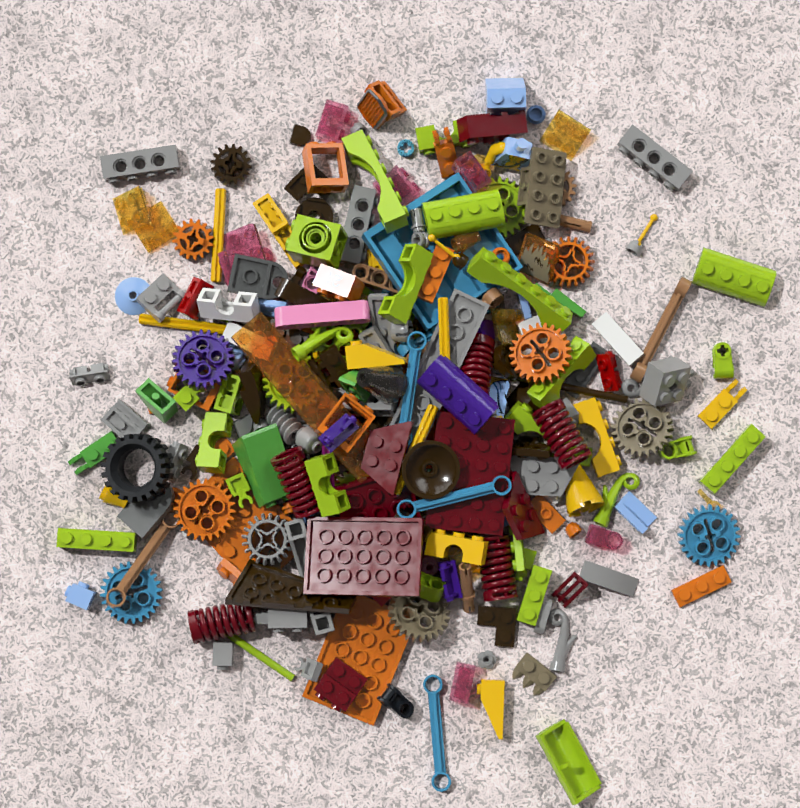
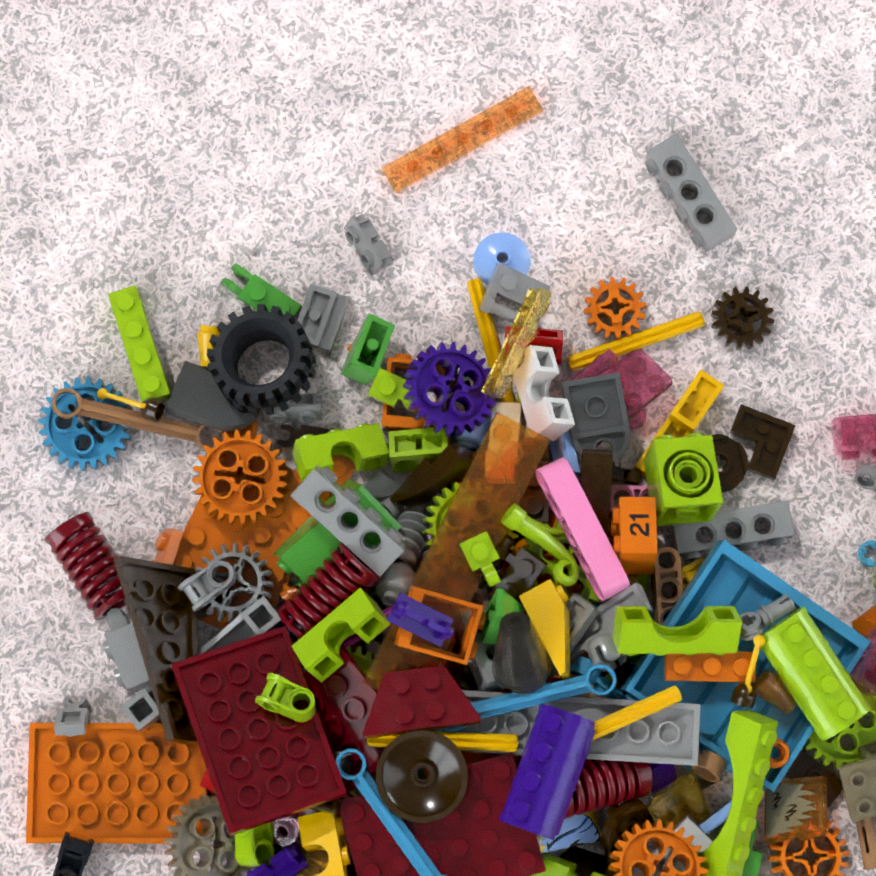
camera: 65 degrees right, 5 degrees down
(47, 289) = (462, 139): none -> clear orange tile
(80, 595) = (54, 355): light blue brick -> none
(132, 210) = (620, 209): clear yellow hinge -> none
(140, 547) = (151, 407): none -> hinge
(161, 229) = (610, 248): clear yellow hinge -> none
(191, 307) = (520, 335): none -> clear yellow plate
(222, 655) = (46, 586): light grey brick -> none
(238, 486) = (290, 514): lime plate -> none
(262, 657) = (64, 645): lime bar -> none
(264, 554) = (207, 585): none -> light grey piece
(289, 444) = (376, 557): none -> light grey brick
(300, 135) = (824, 398): dark brown tile -> none
(313, 381) = (480, 554): none -> lime plate
(325, 185) = (771, 461): orange window -> none
(340, 685) = (64, 771): dark red plate -> none
(351, 532) = (282, 694): none -> lime piece
(360, 153) = (776, 562): lime arch -> none
(407, 190) = (808, 564): clear pink hips -> none

